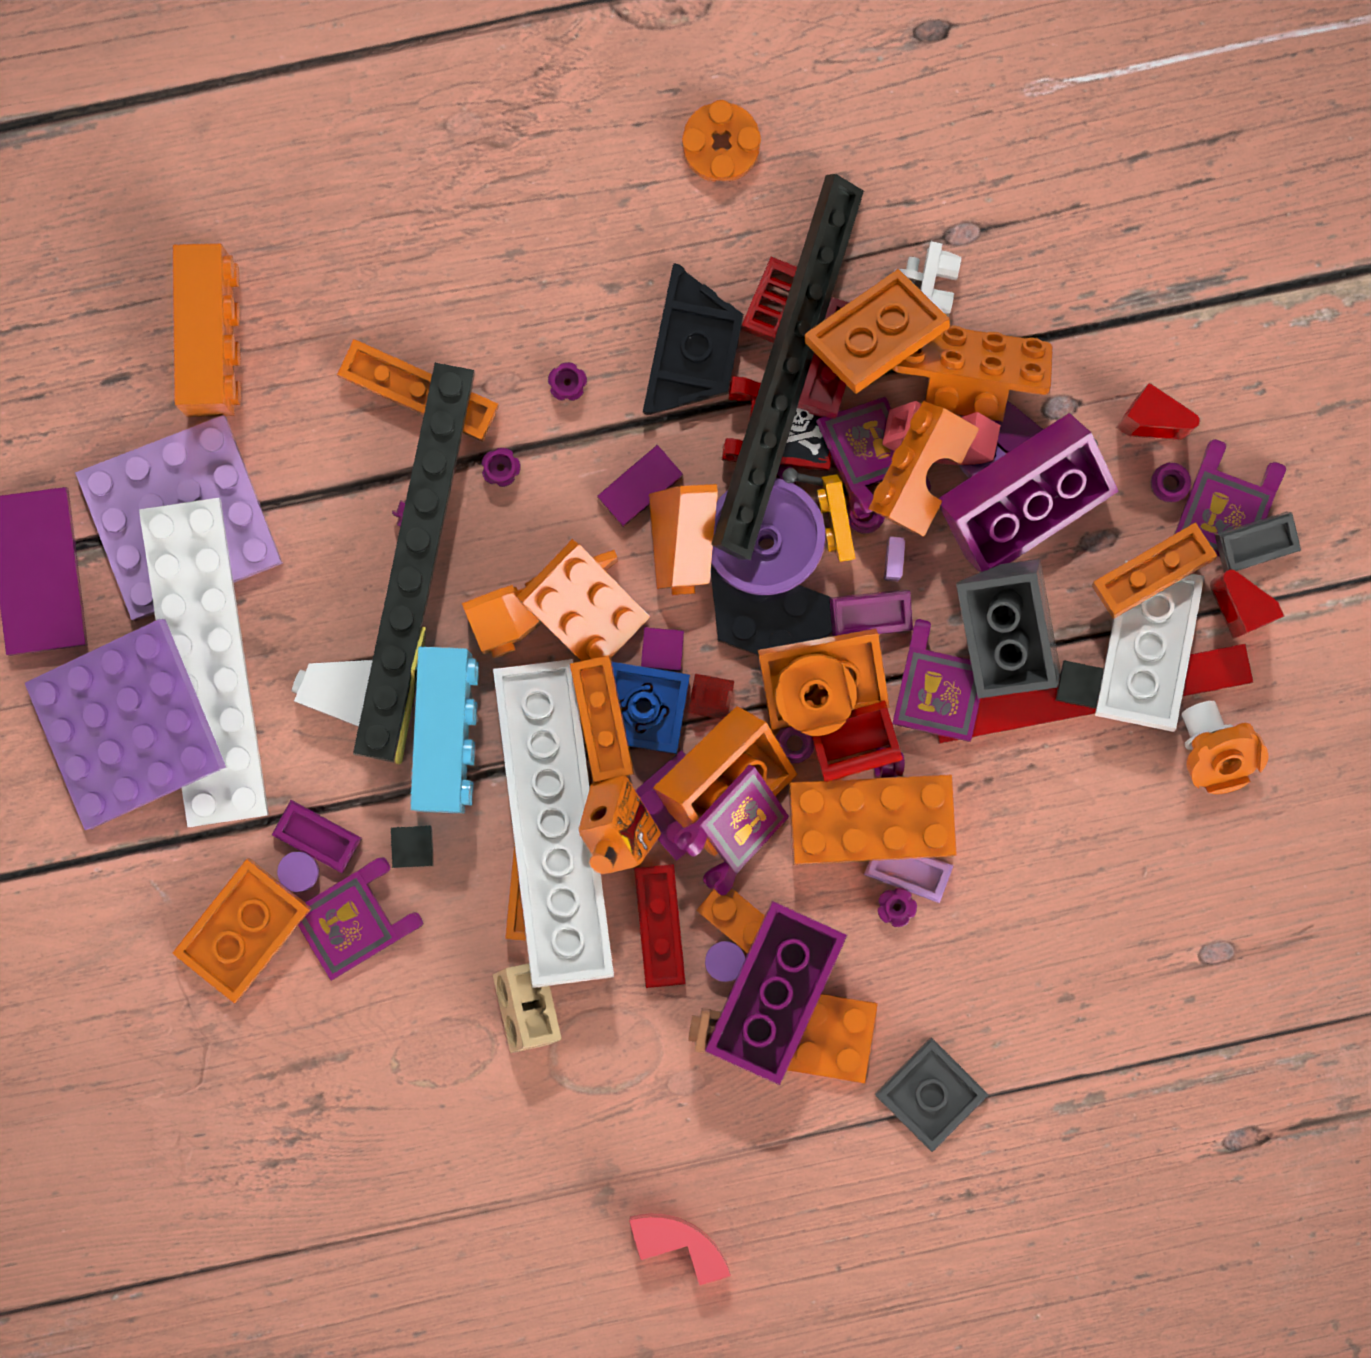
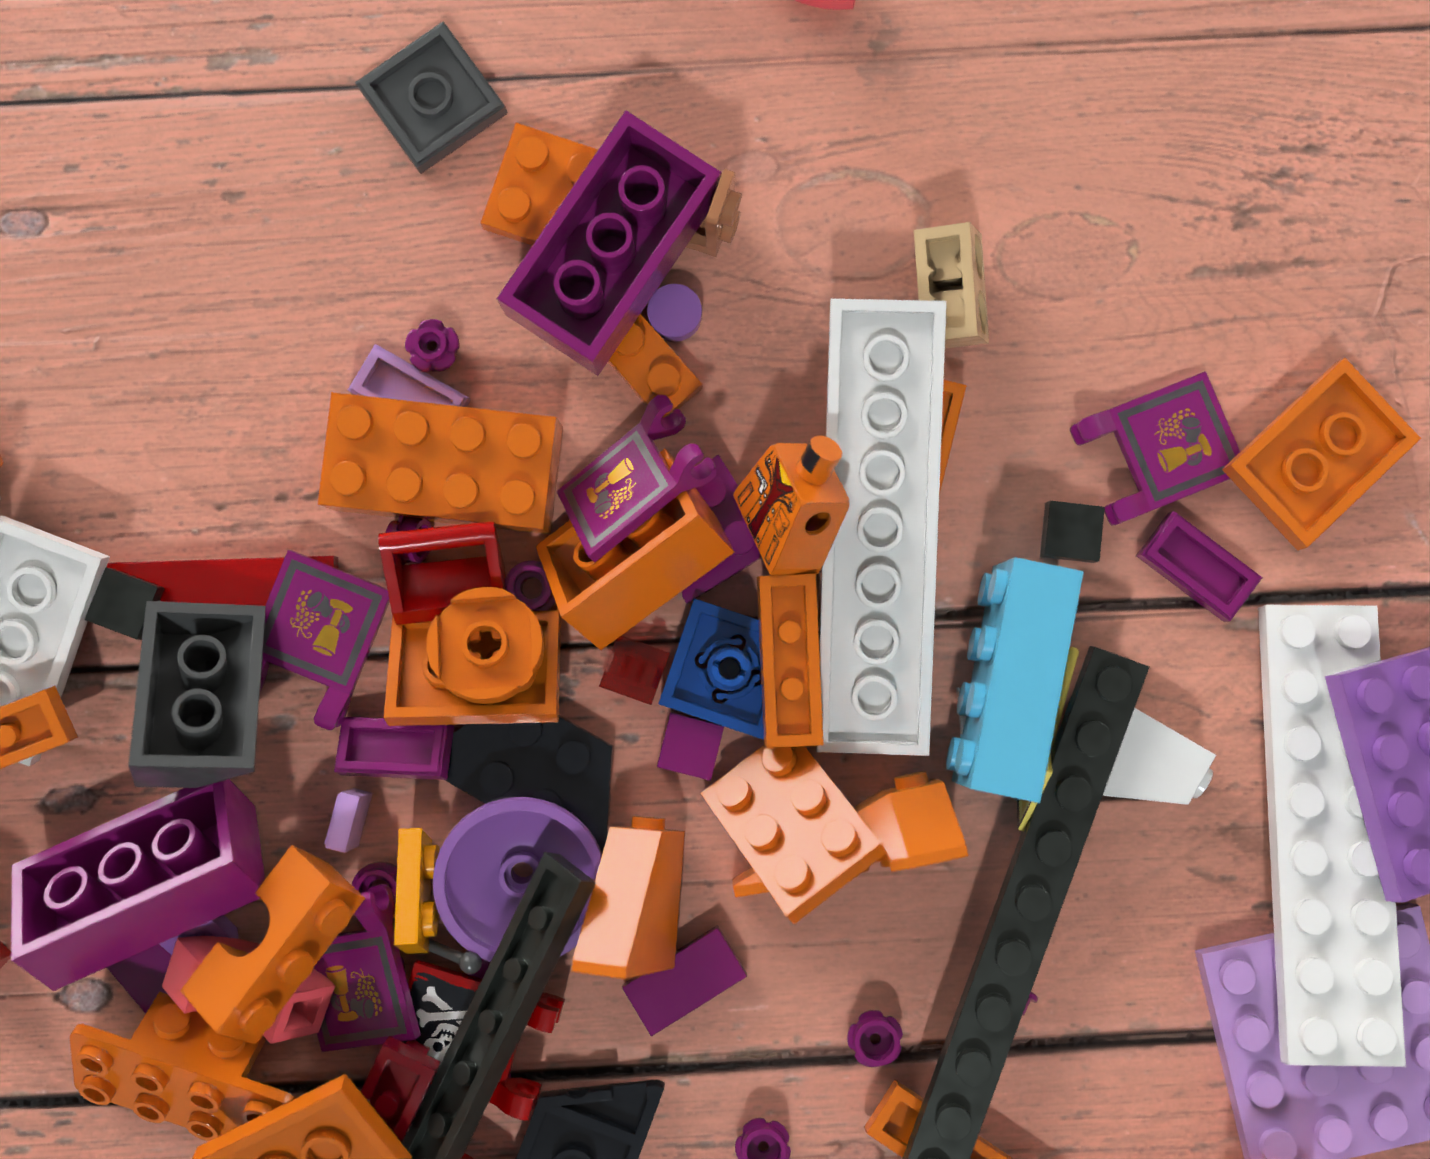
camera: 170 degrees left, 0 degrees up
(298, 871) = (1231, 522): medium lavender tile -> none
(659, 926) = (754, 372): red tile -> none

